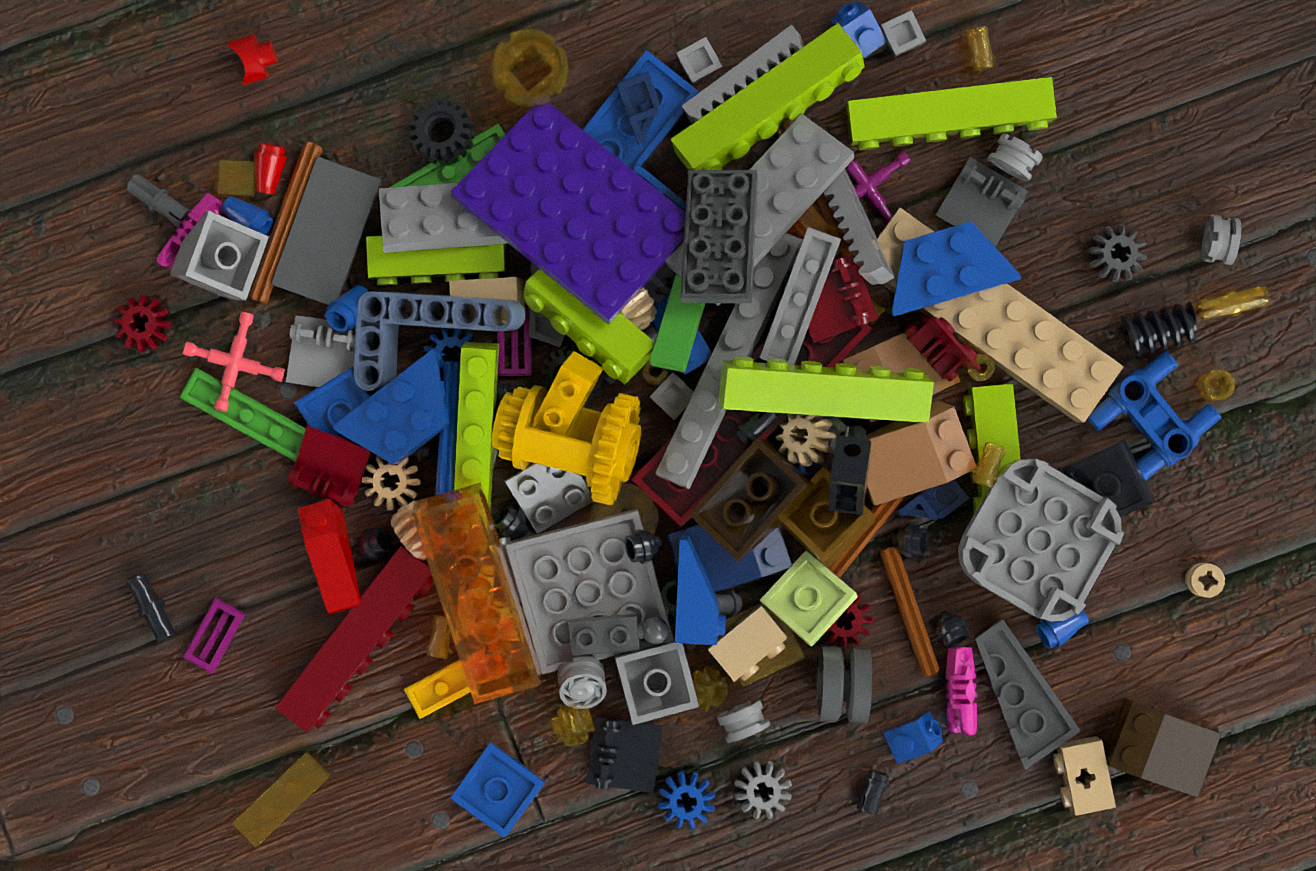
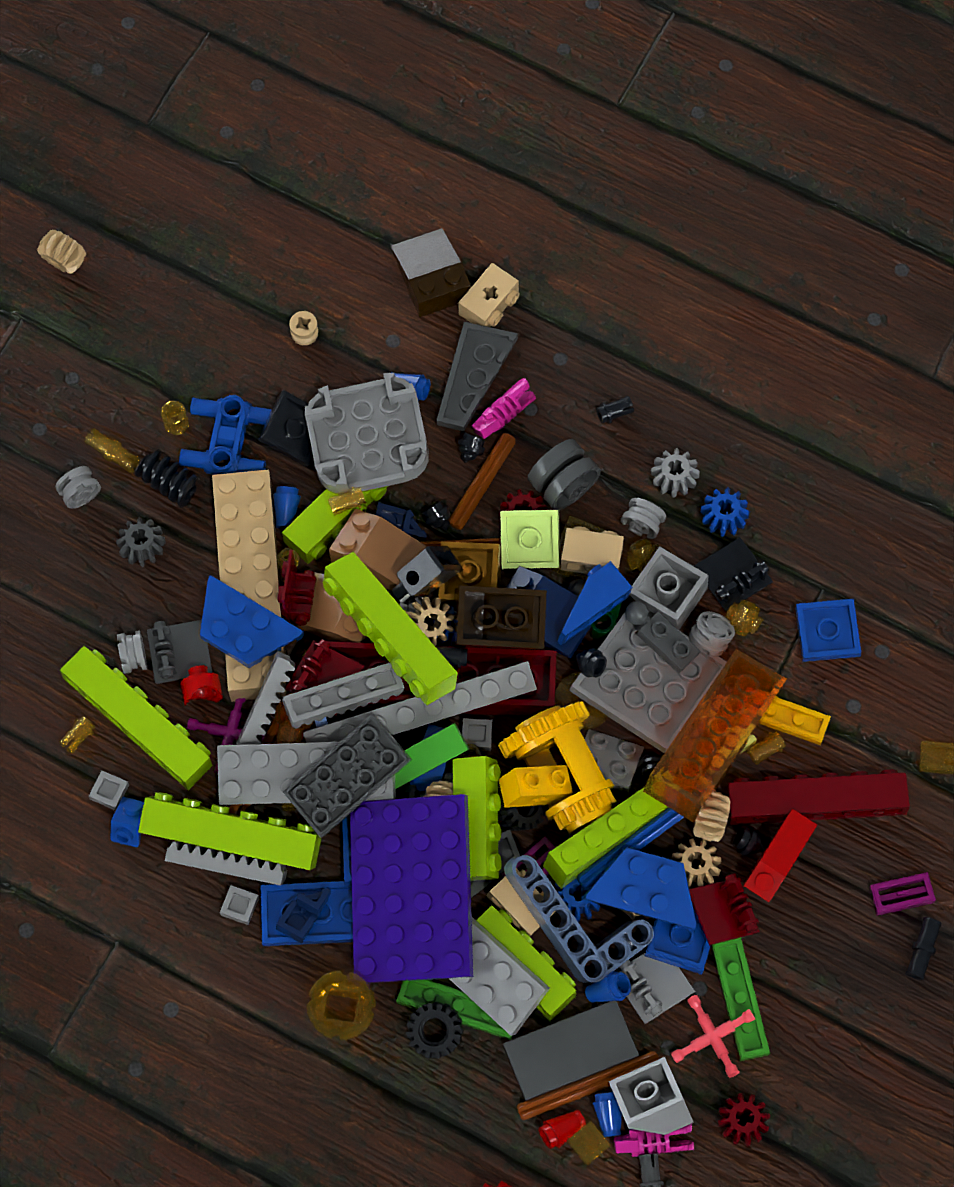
camera: 135 degrees left, 20 degrees down
(914, 737) = (559, 413): blue bracket -> none
(931, 193) = (201, 685): none -> red piece
(1038, 412) = (285, 505): none -> blue cone

